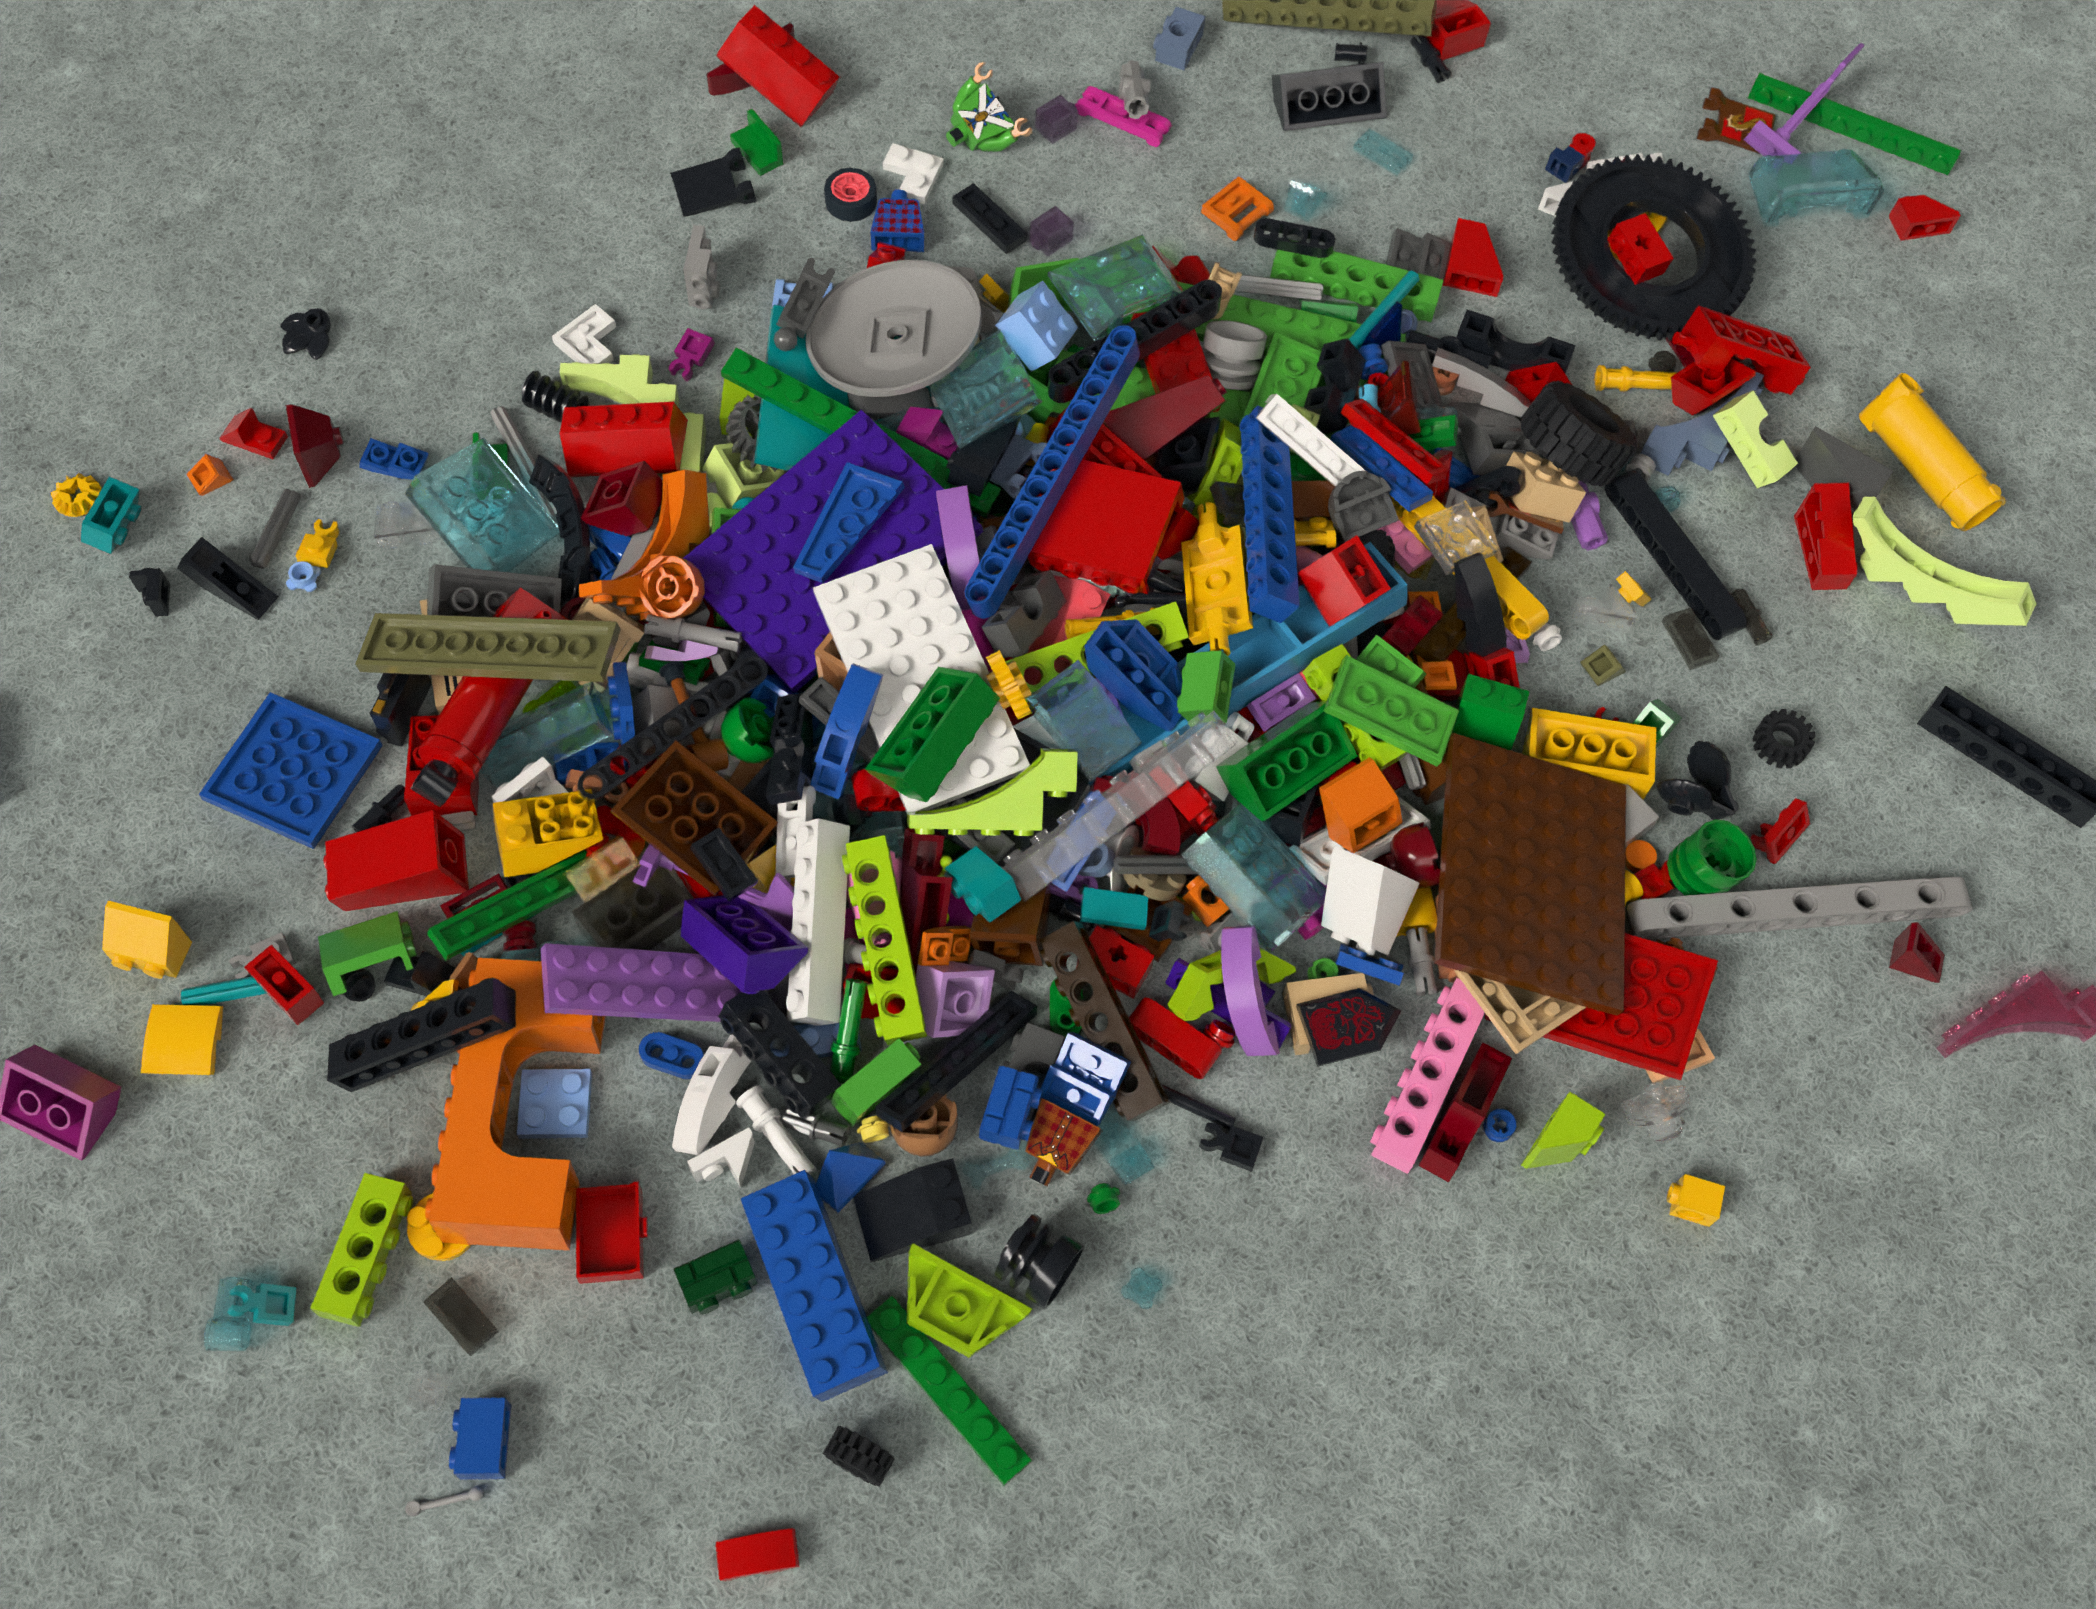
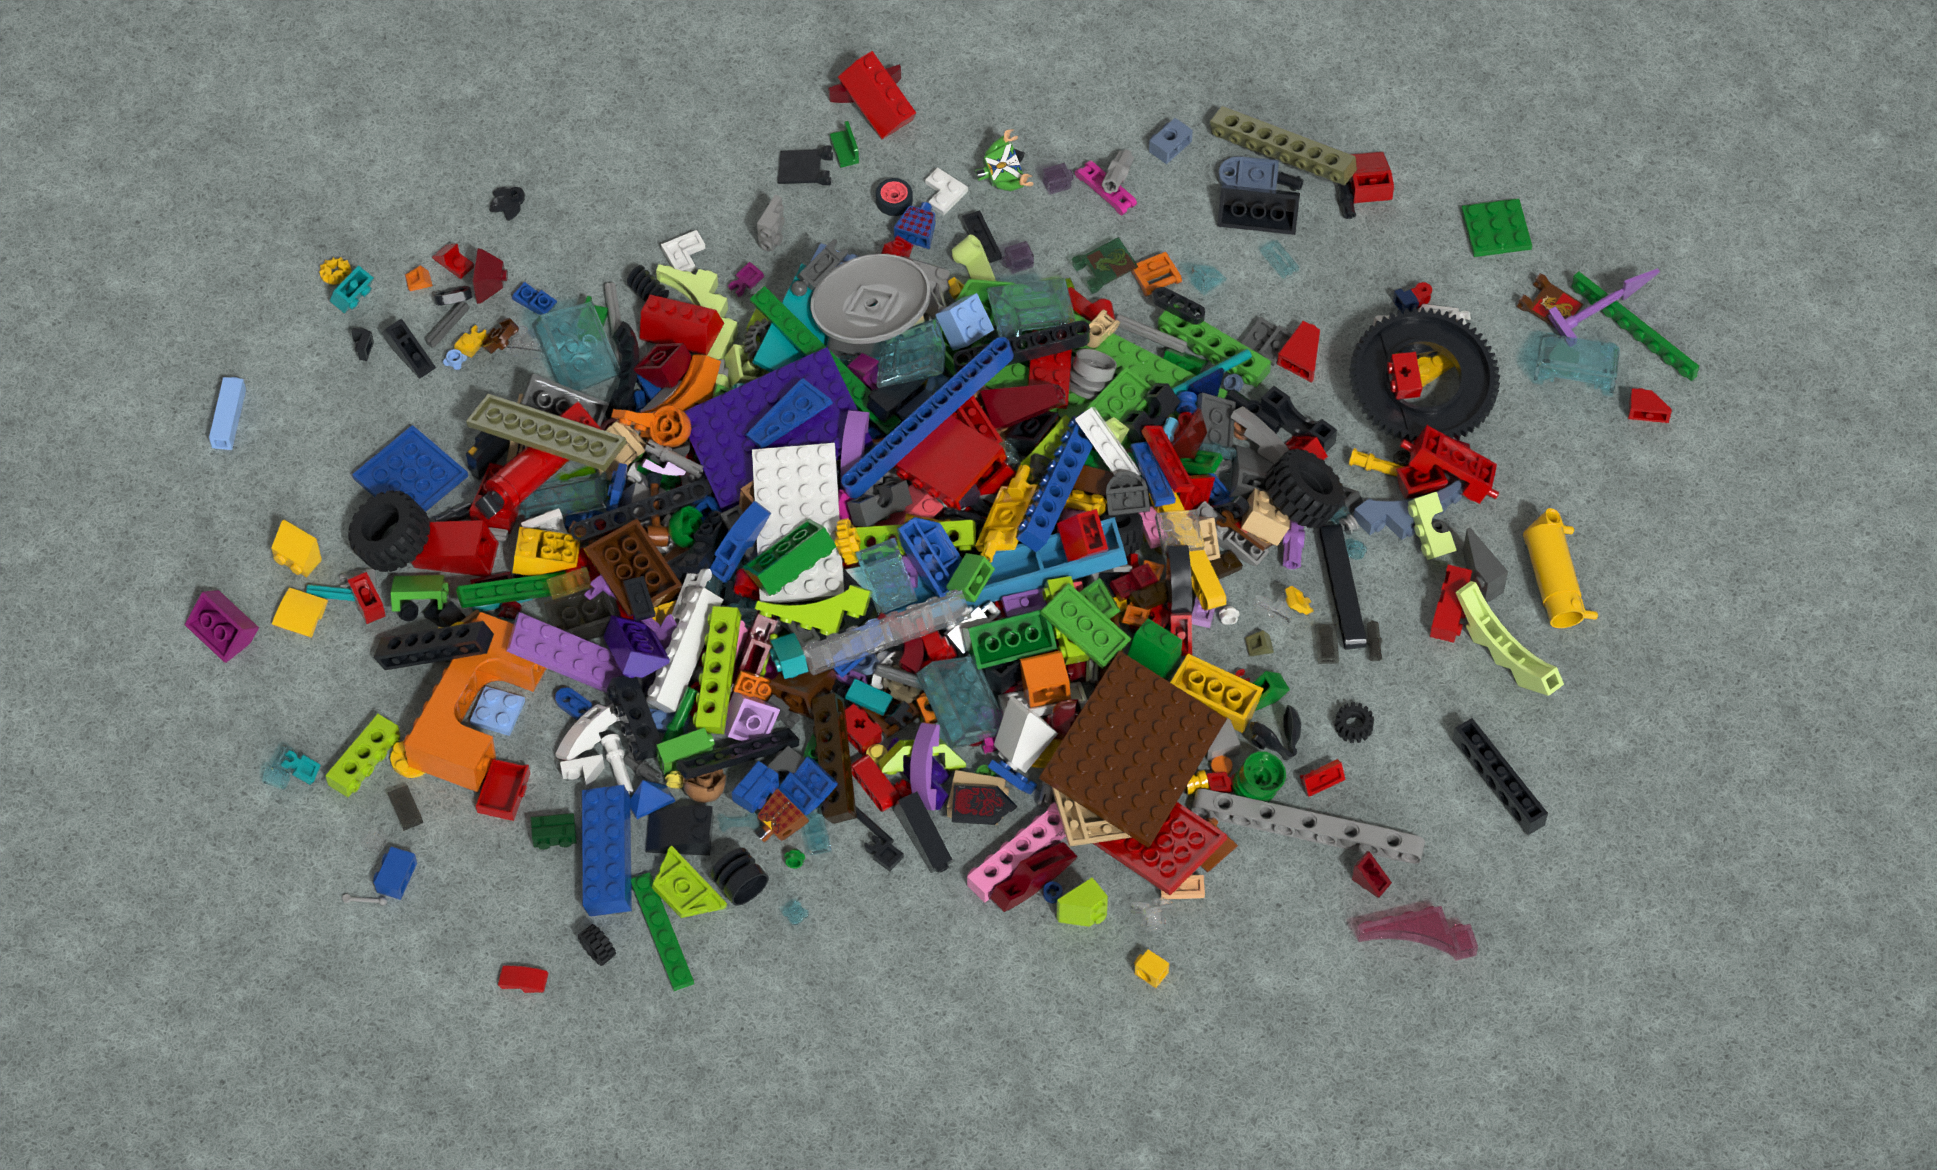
camera: 25 degrees right, 5 degrees down
(256, 859) = (404, 541): none -> black tyre
(269, 485) = (452, 295): none -> black beam
(362, 525) = (499, 337): none -> reddish brown plate
(994, 248) = (971, 253): none -> yellowish green door
(1157, 989) = (876, 752): none -> light yellow plate
(1169, 209) = (1105, 263): none -> clear green flag
(1279, 1095) = (923, 832): none -> black slope
(1296, 53) = (1250, 172): none -> sand blue plate
(1625, 49) = (1496, 227): none -> green plate

